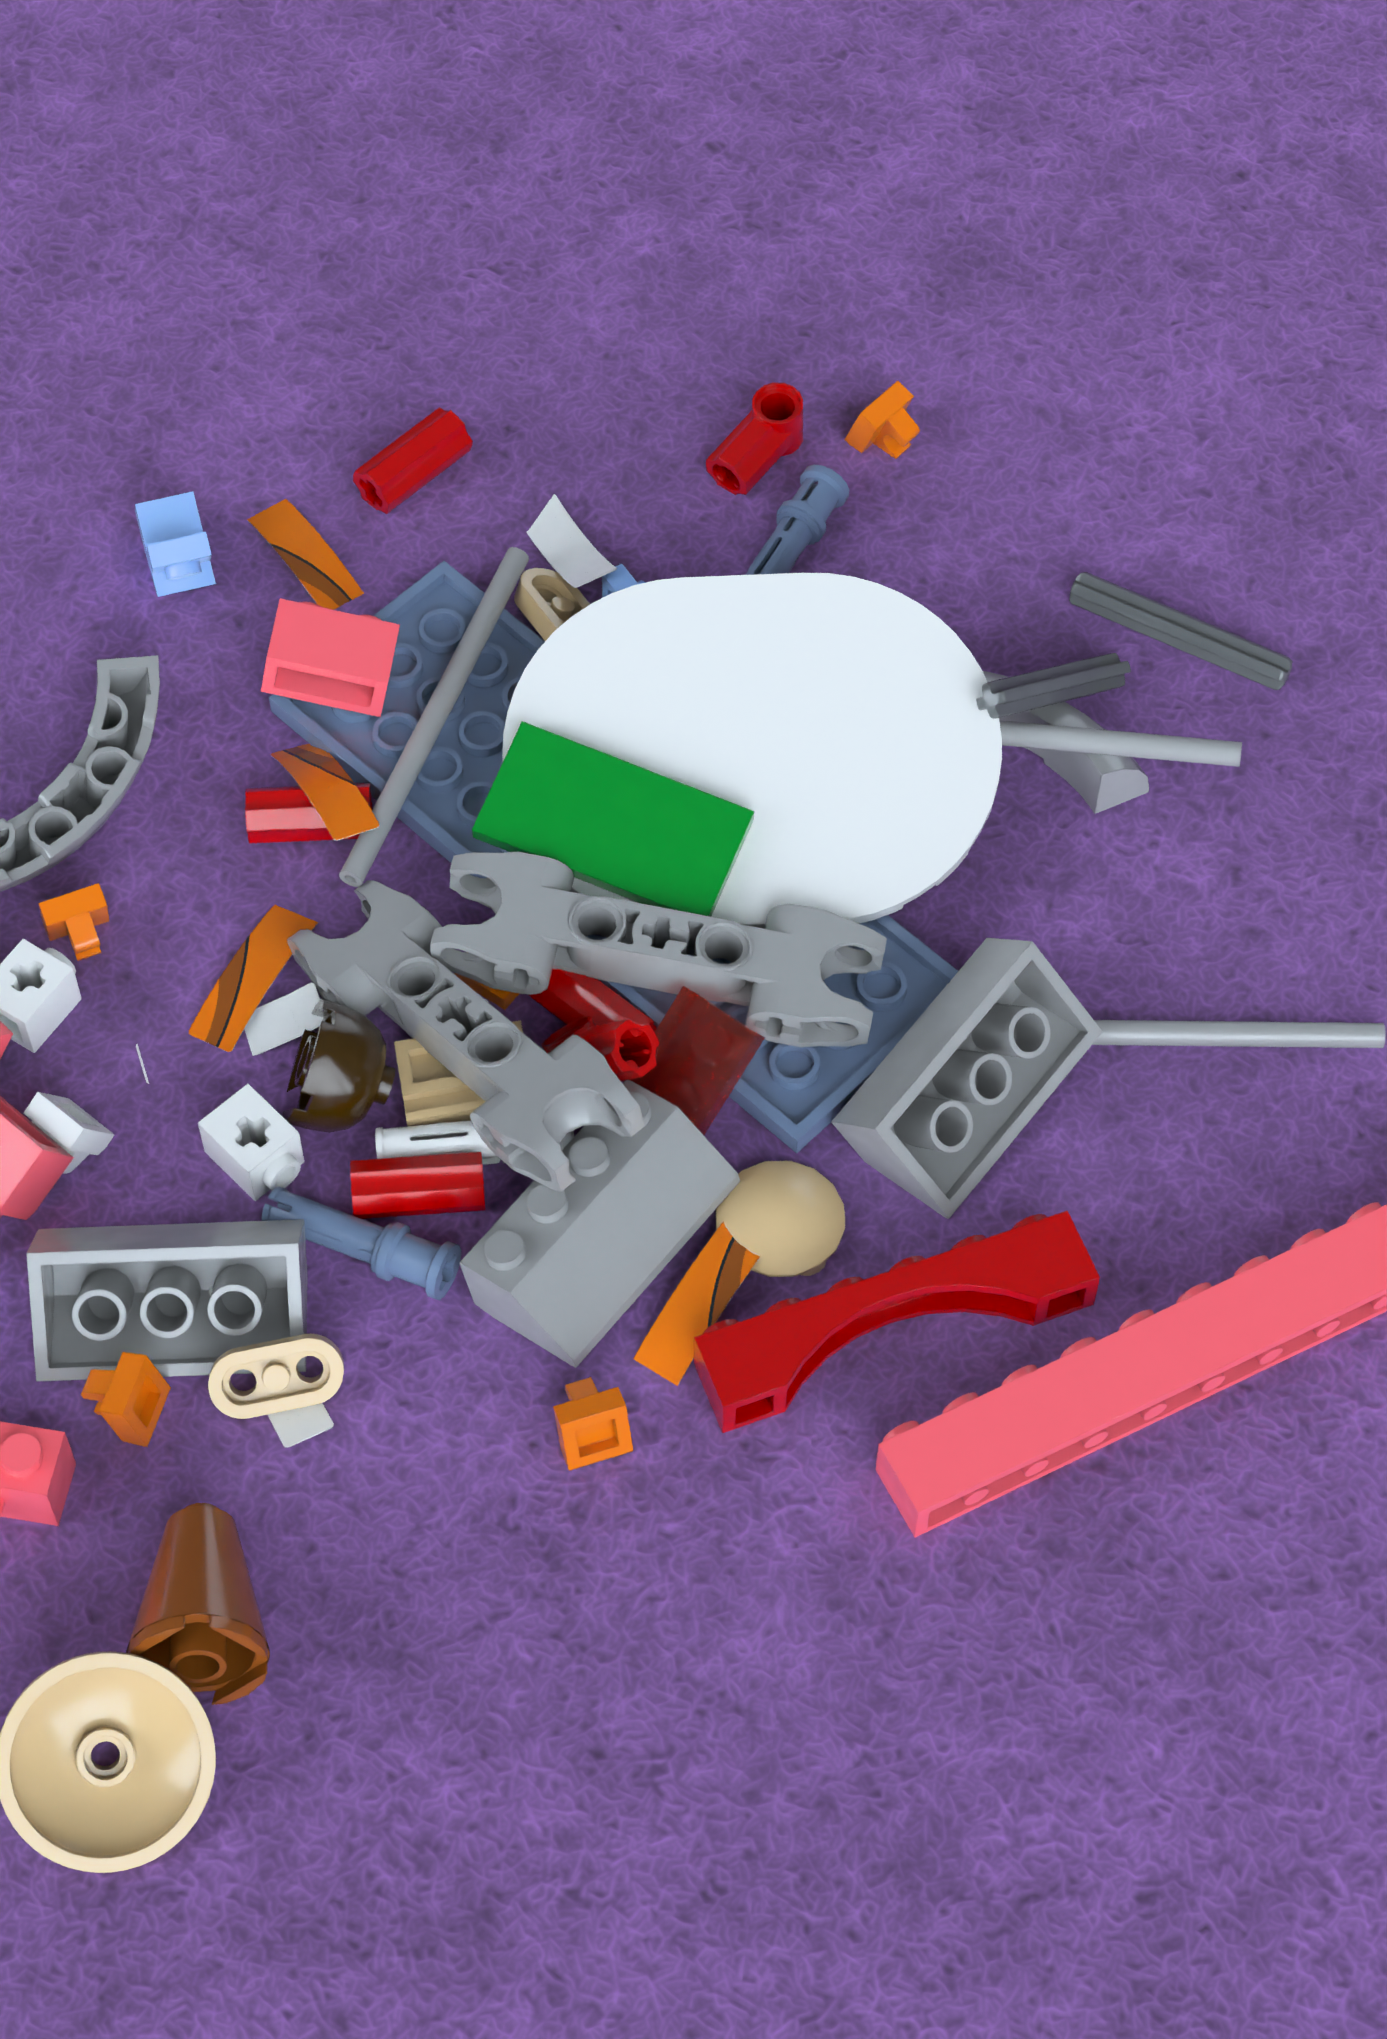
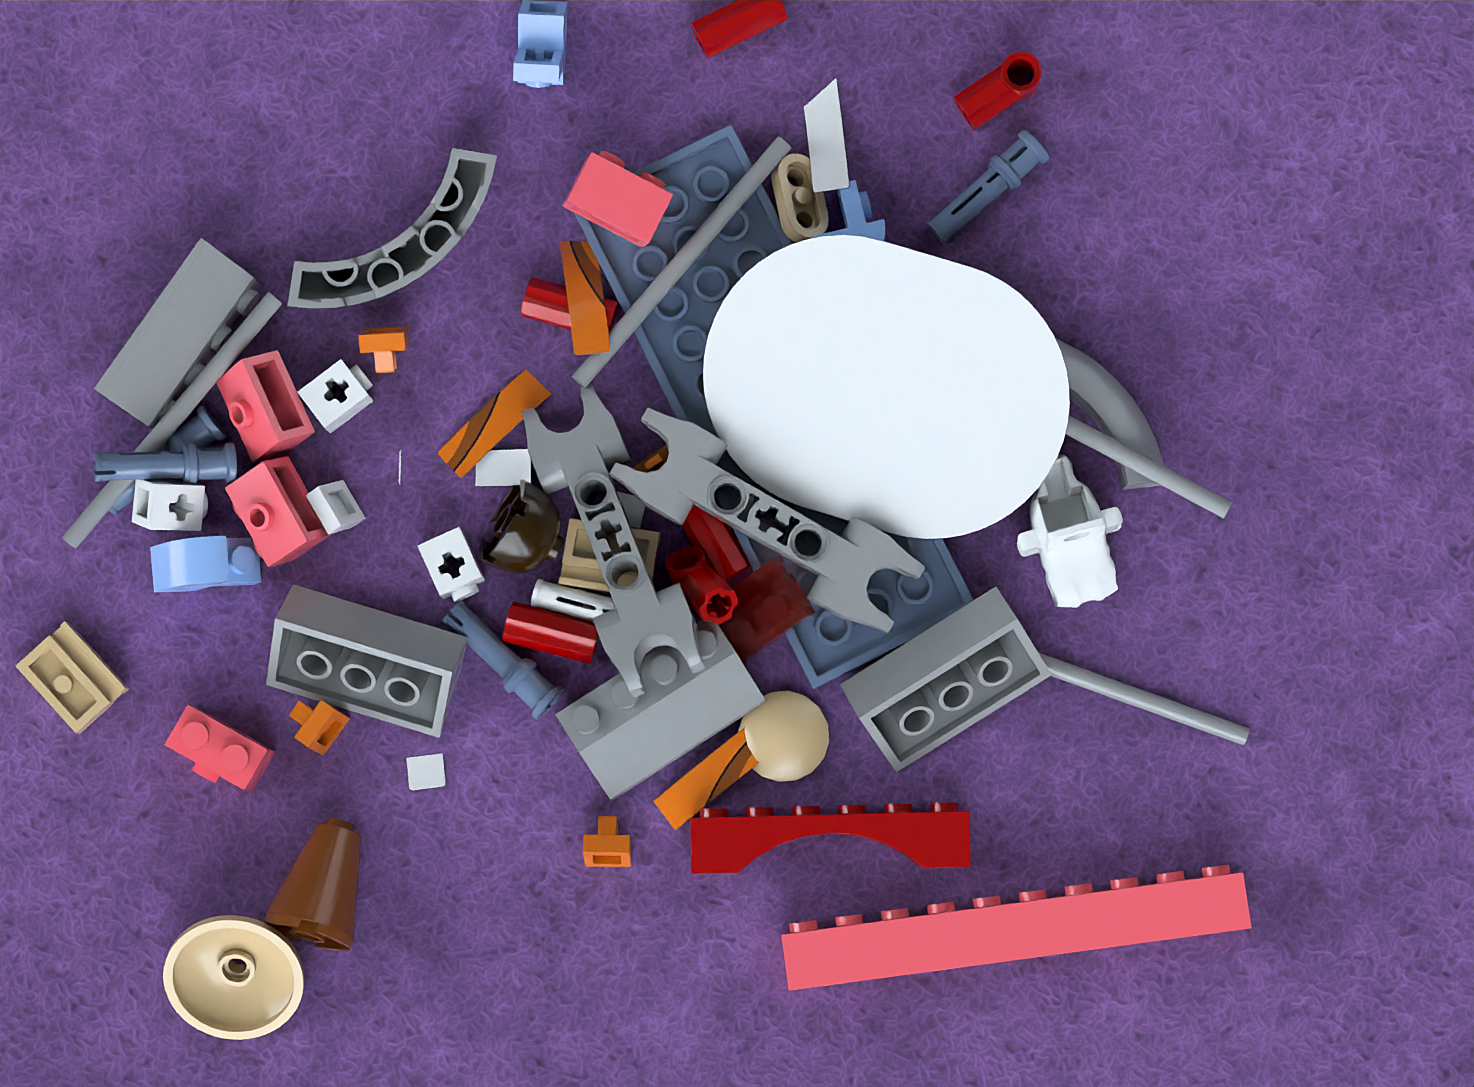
camera: 25 degrees right, 25 degrees up
(278, 1380) = (418, 743): plate -> none
(306, 555) = (636, 74): orange sticker -> none
(613, 822) = (767, 416): green tile -> none
(885, 423) = (1099, 104): orange tile -> none
(1052, 685) = (1123, 398): dark grey axle -> none
(1057, 867) = (1071, 538): none -> white piece
(1180, 630) = (1245, 359): dark grey axle -> none

